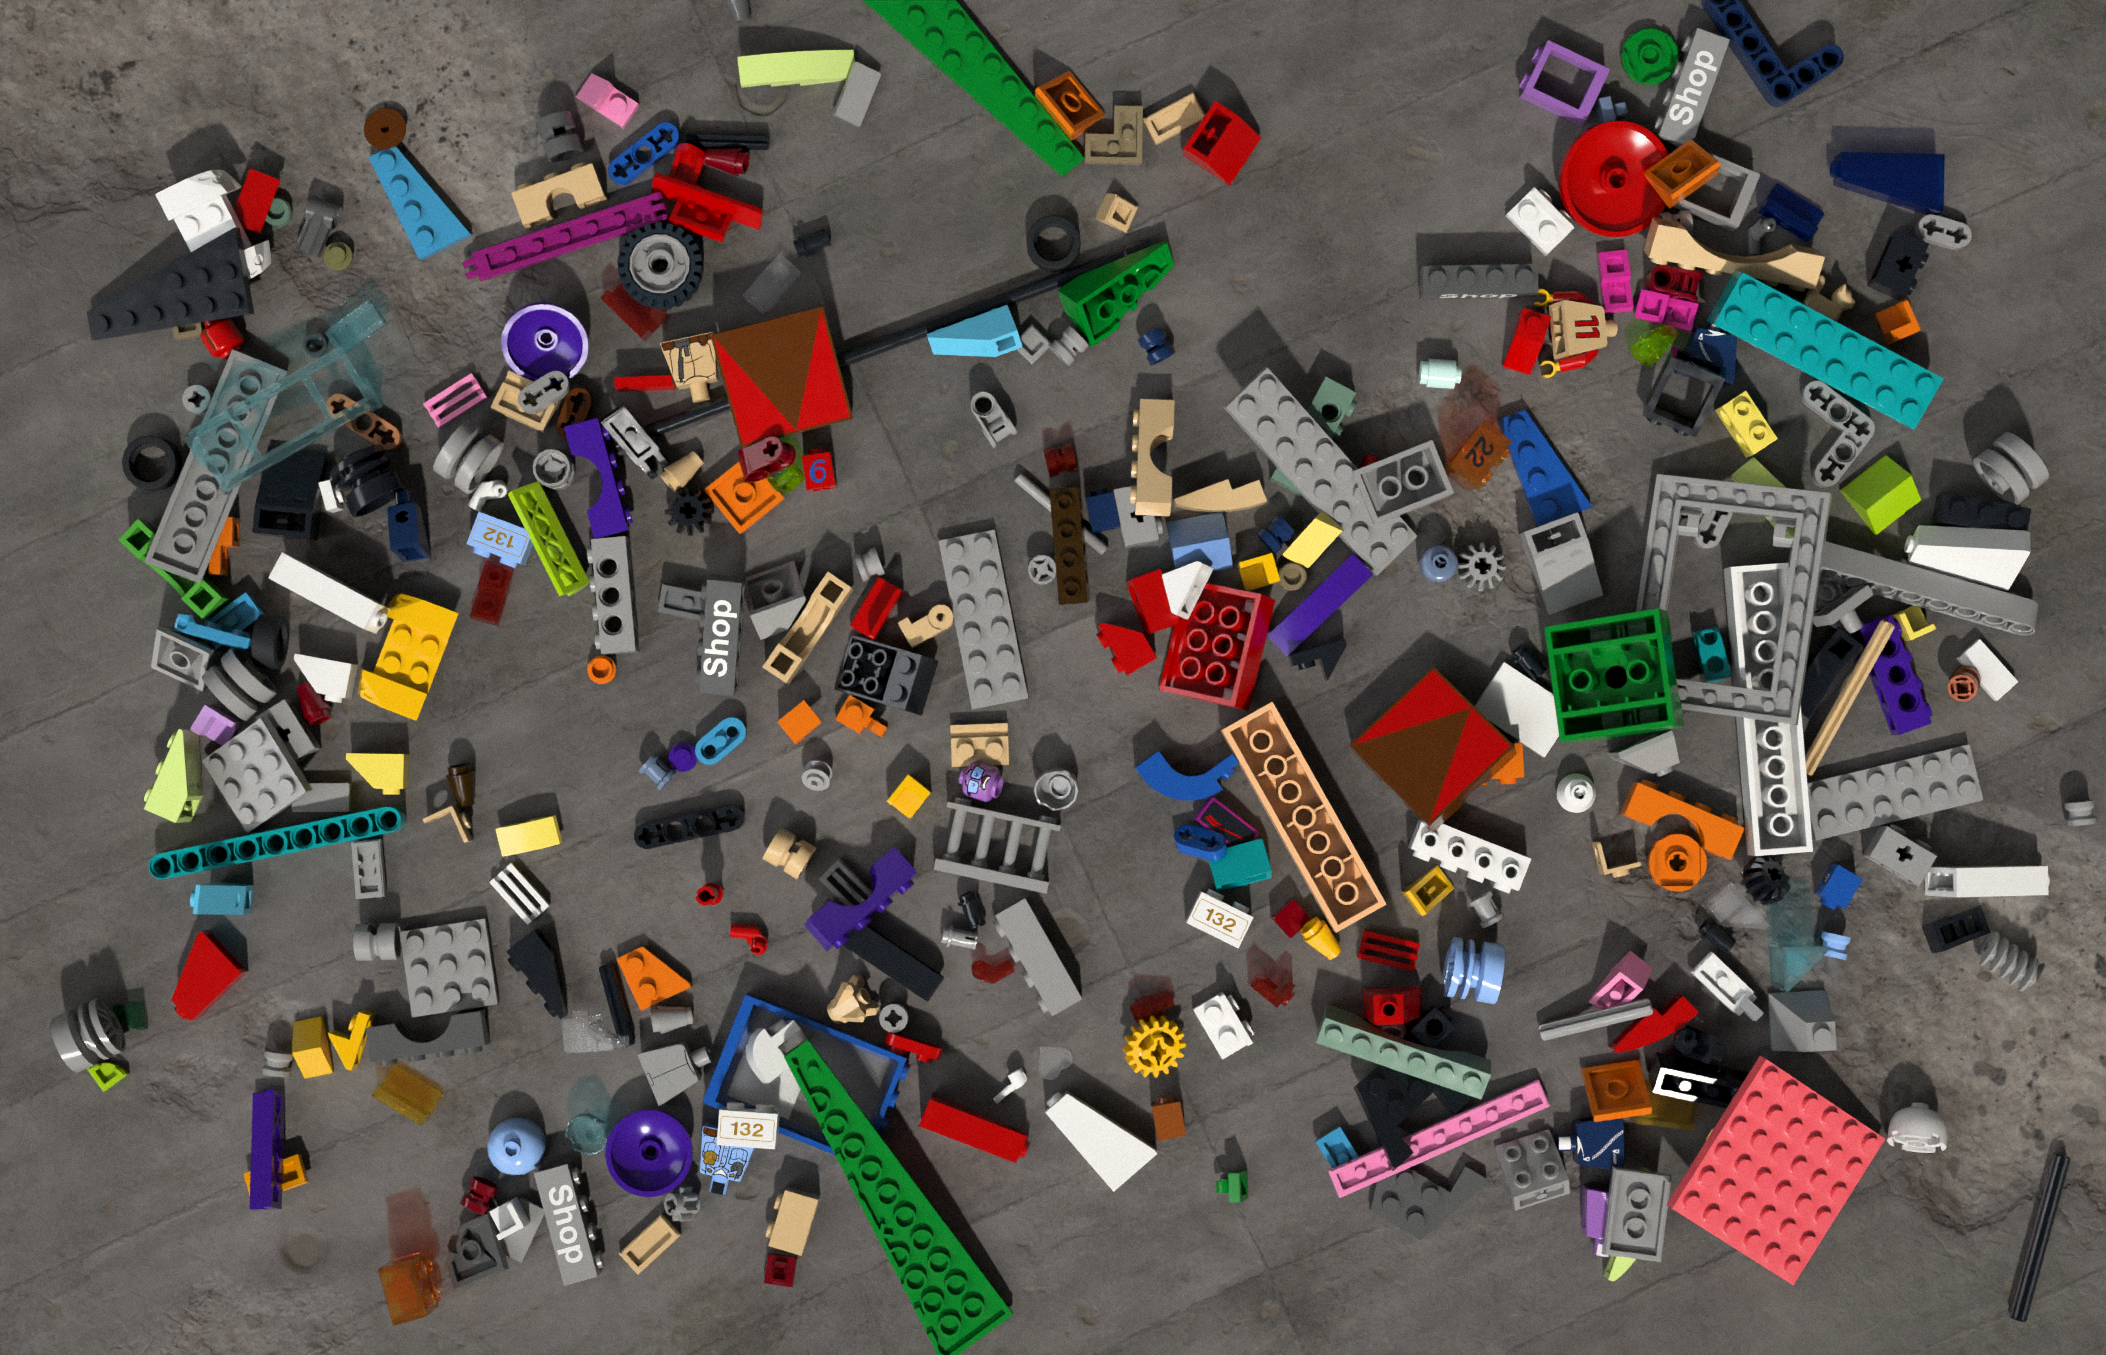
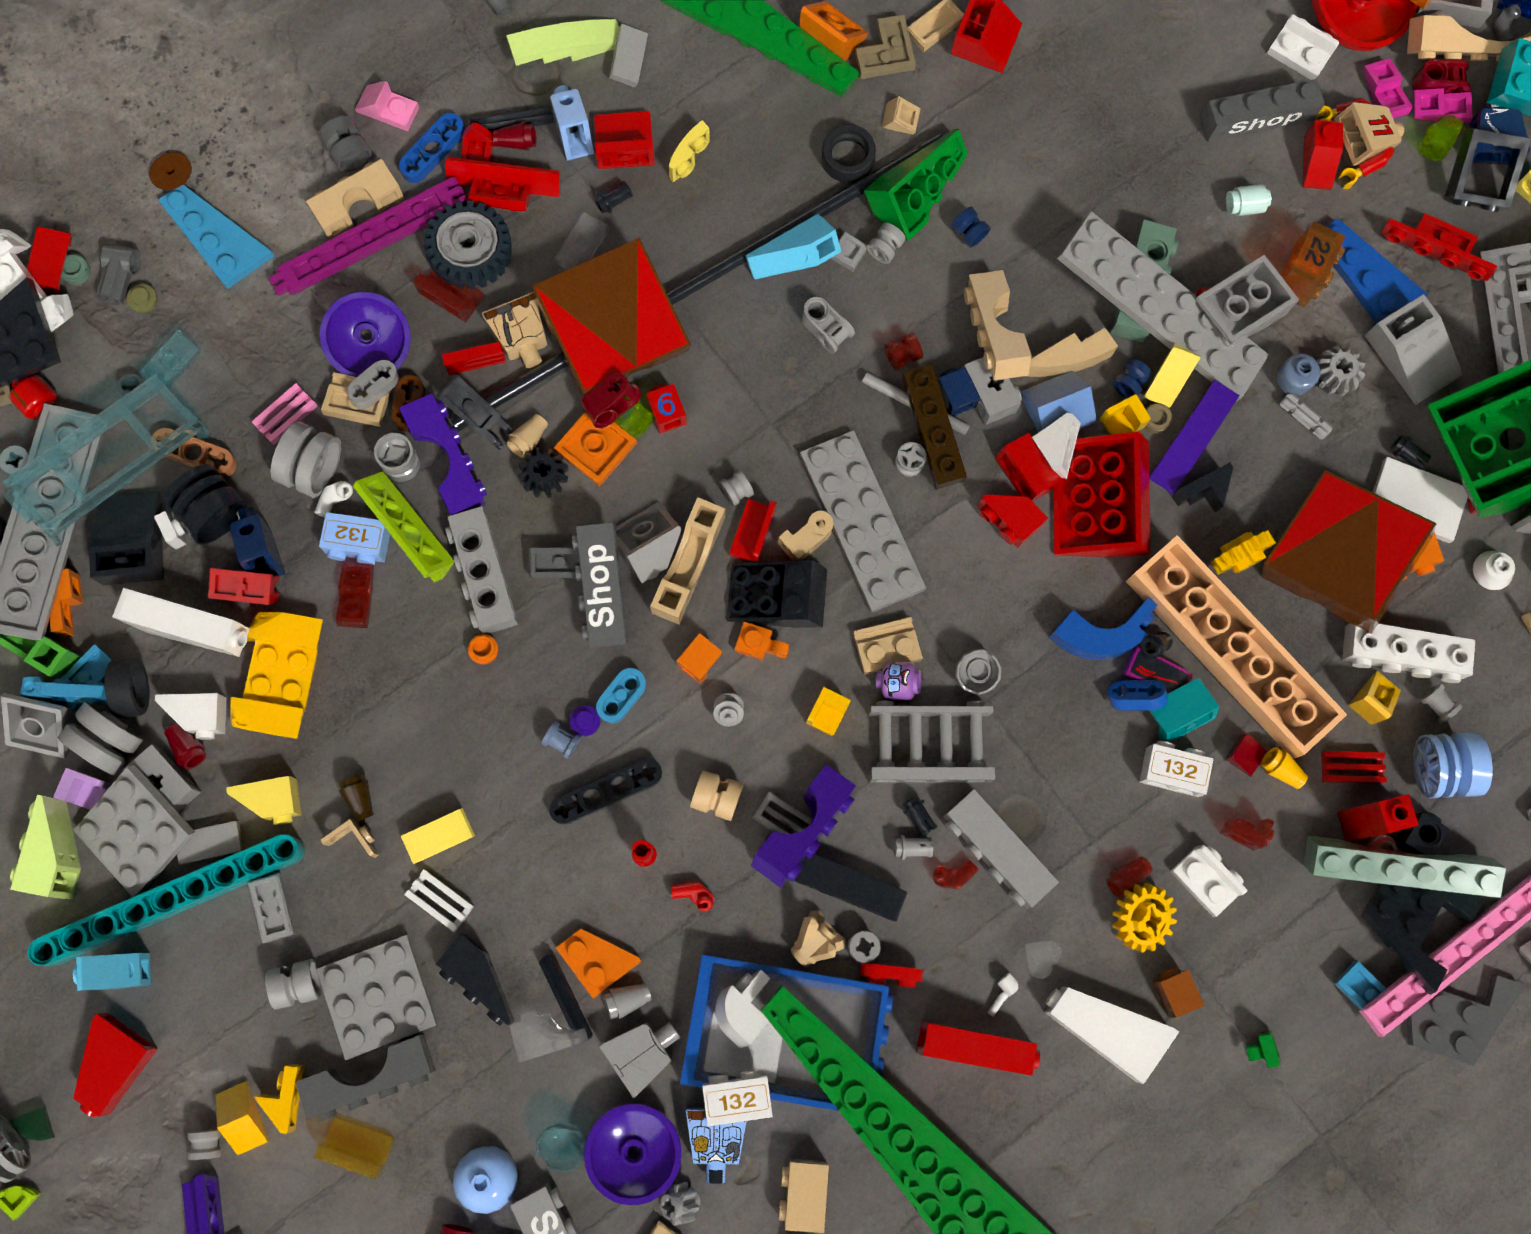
camera: 20 degrees left, 10 degrees down
(389, 567) = (242, 586): none -> red hinge
(784, 157) = (568, 113): none -> light blue torso
(834, 184) = (624, 140): none -> red bracket
(887, 218) = (683, 159): none -> light yellow slope
(1228, 799) = (1160, 642): none -> black pin
(1333, 729) = (1243, 552): none -> yellow gear
(1438, 604) = (1306, 415): none -> light grey axle
(1621, 456) = (1441, 242): none -> red bracket

